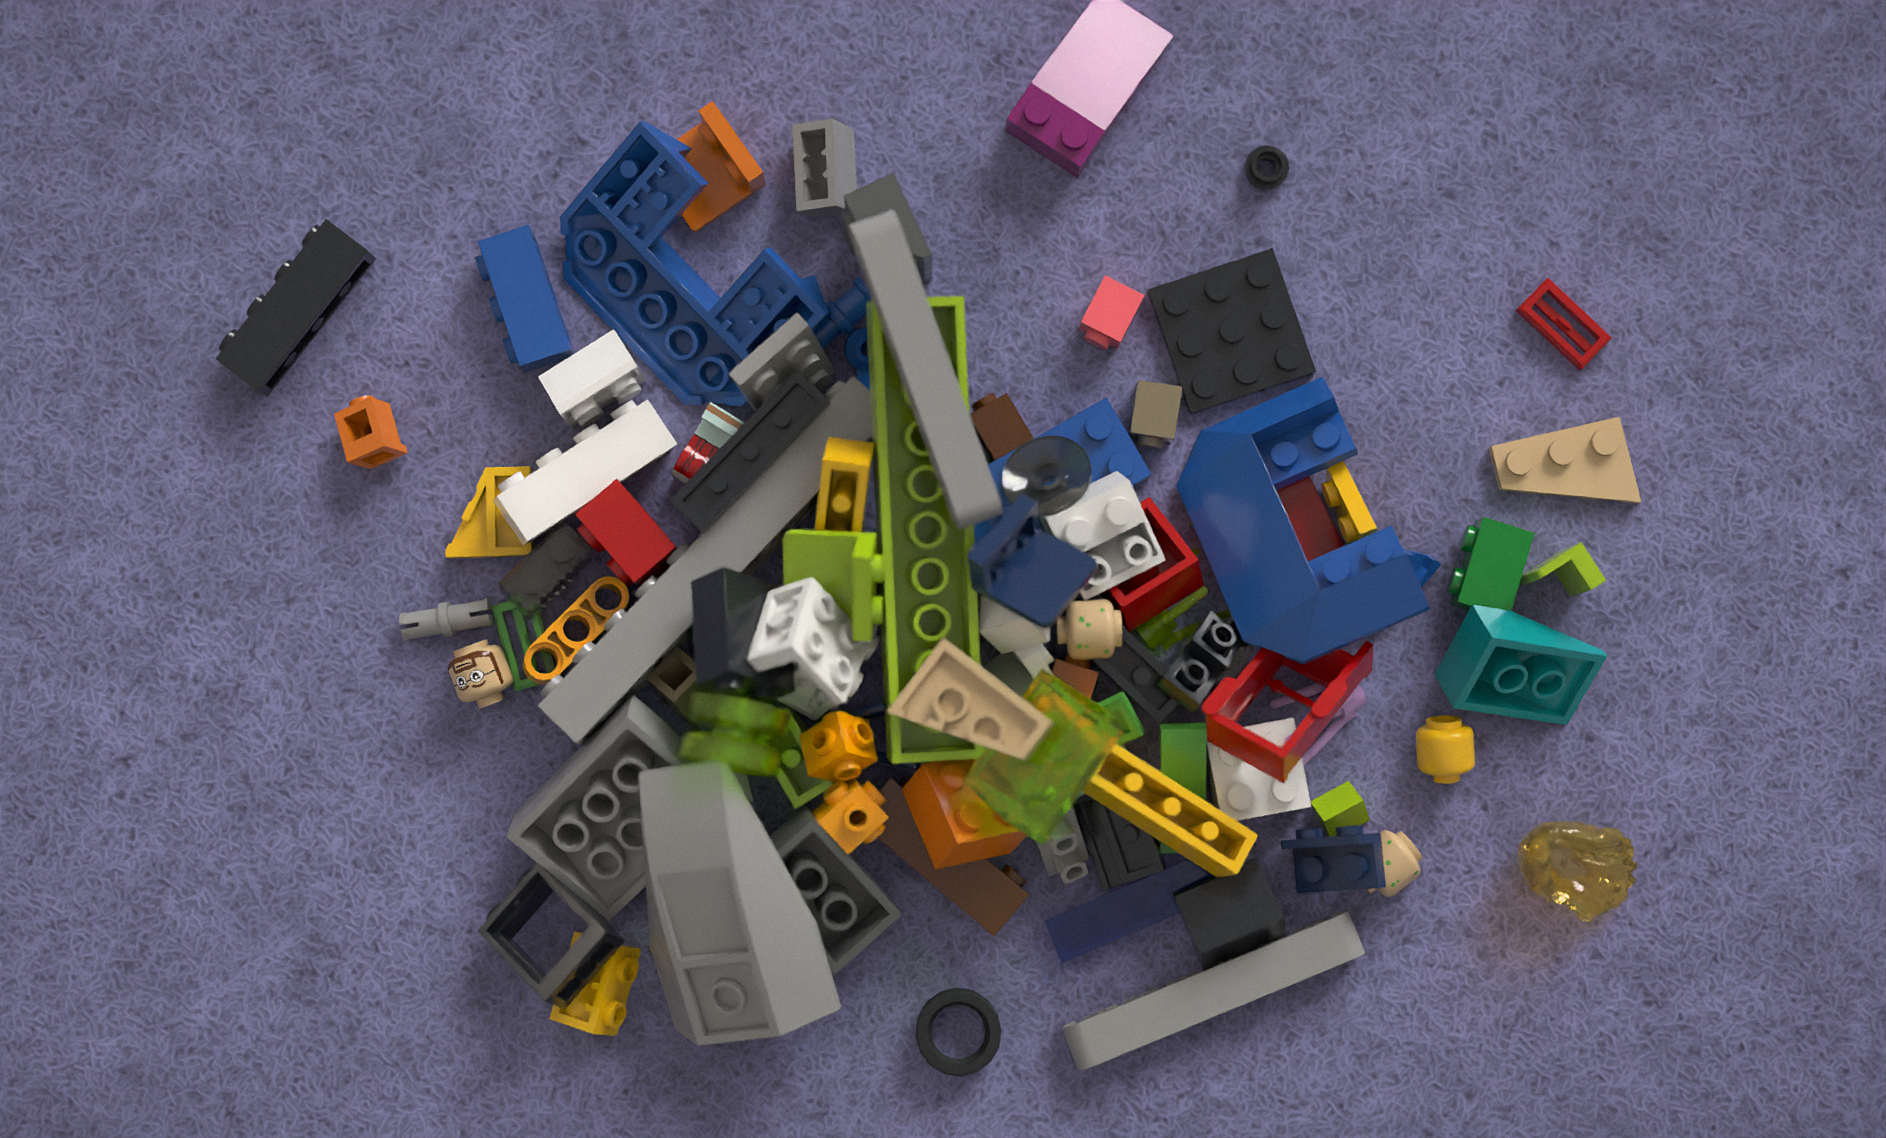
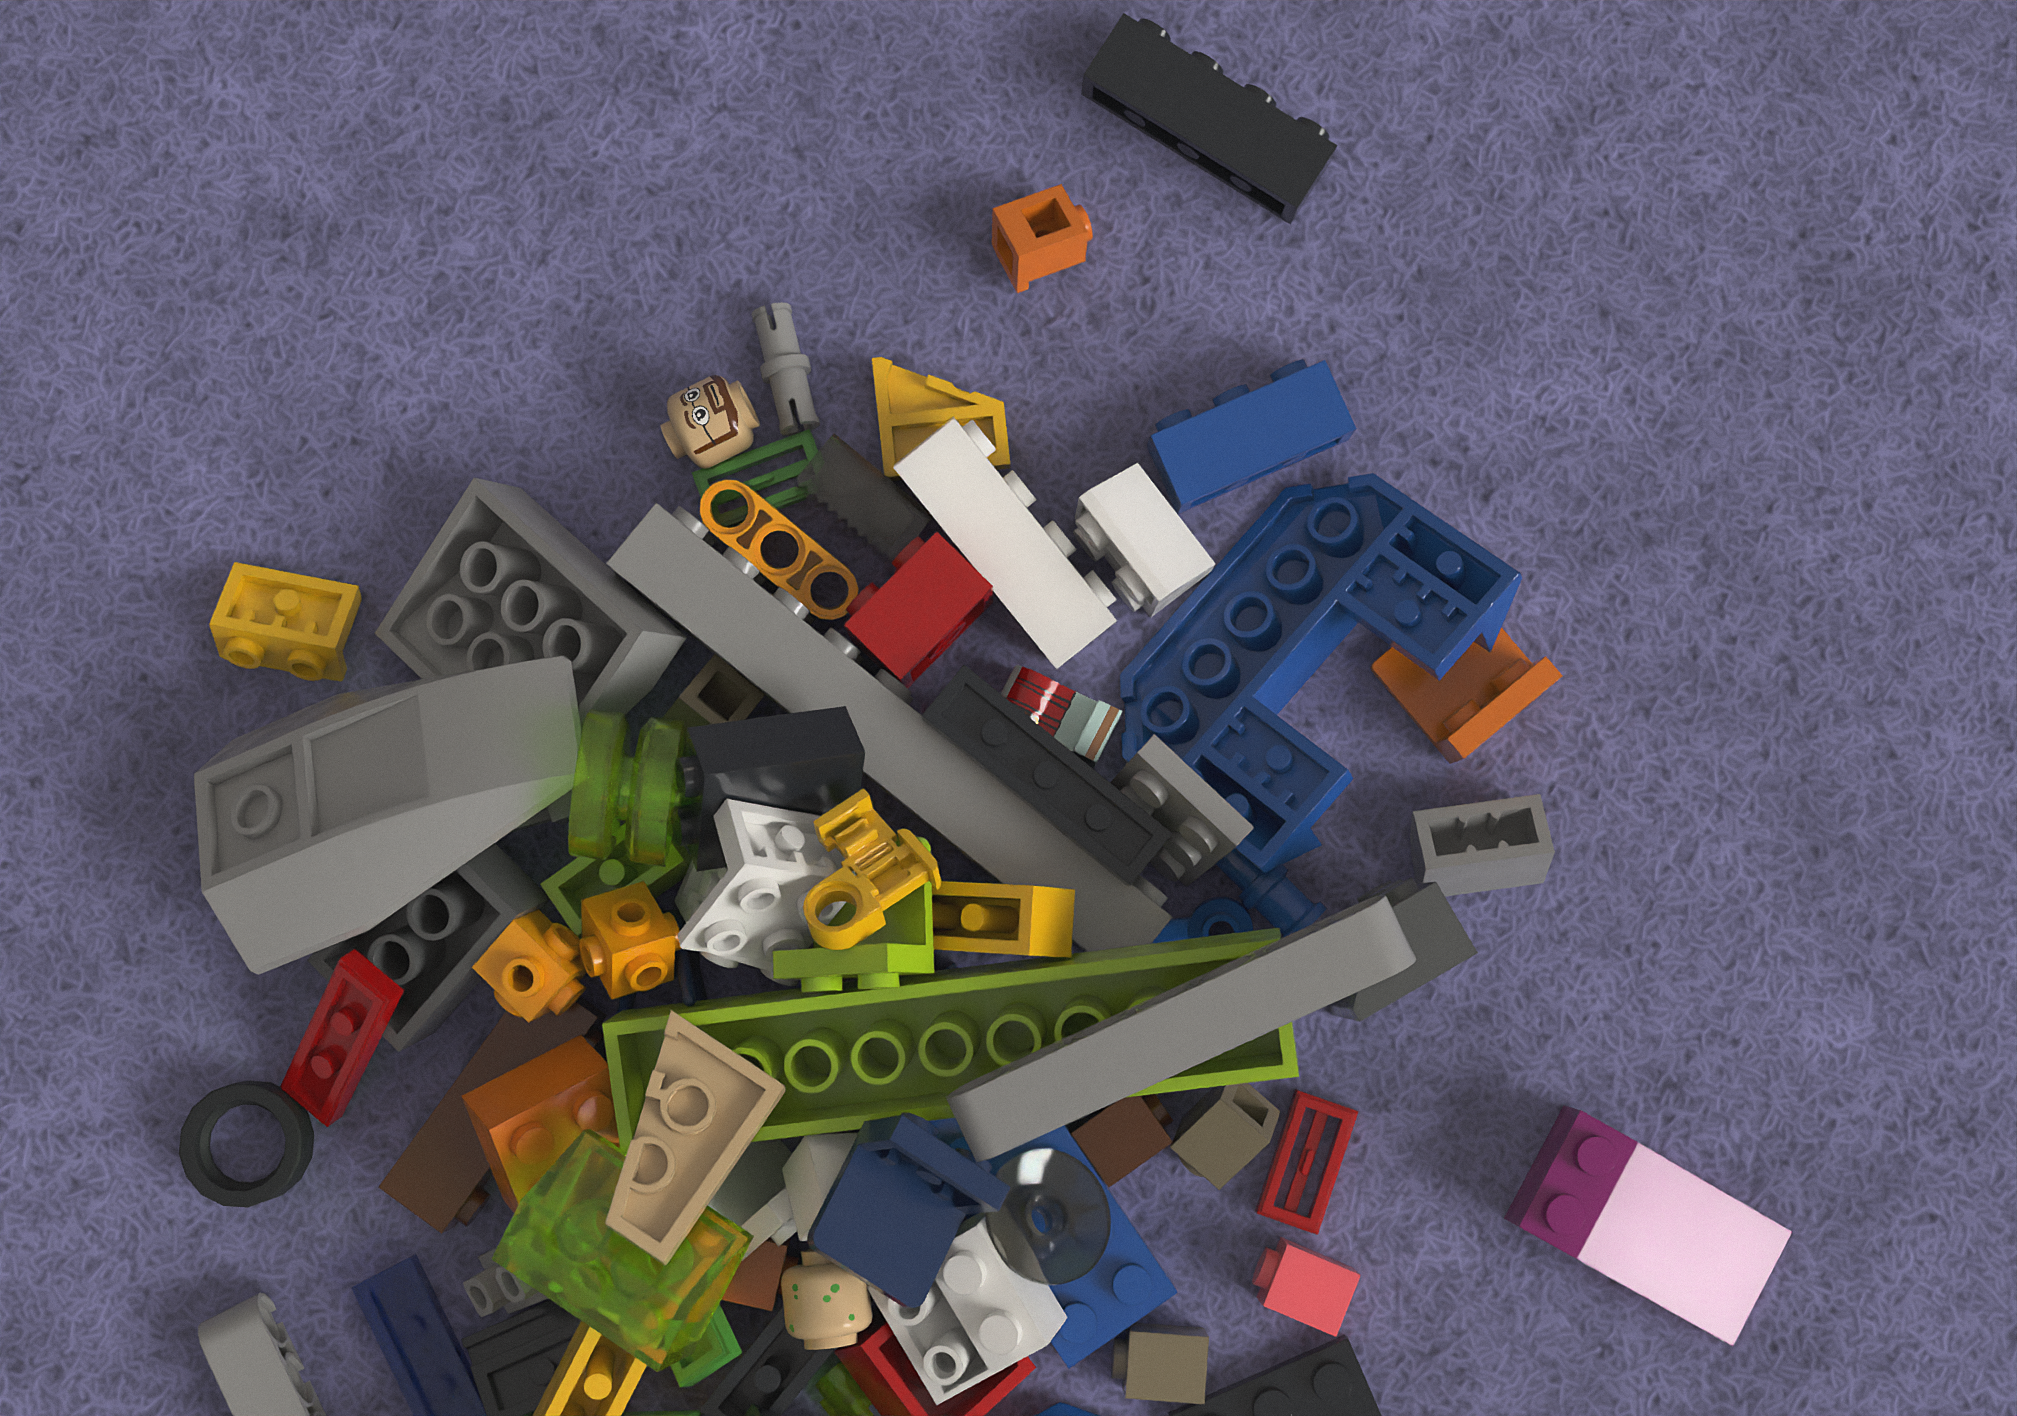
camera: 85 degrees right, 0 degrees up
(577, 964) = (301, 597): black window -> none
(803, 566) = (881, 870): none -> yellow piece
(890, 955) = (341, 1037): none -> red tile
(1002, 358) = (1224, 1132): none -> dark tan brick
(1020, 321) = (1323, 1109): none -> red tile

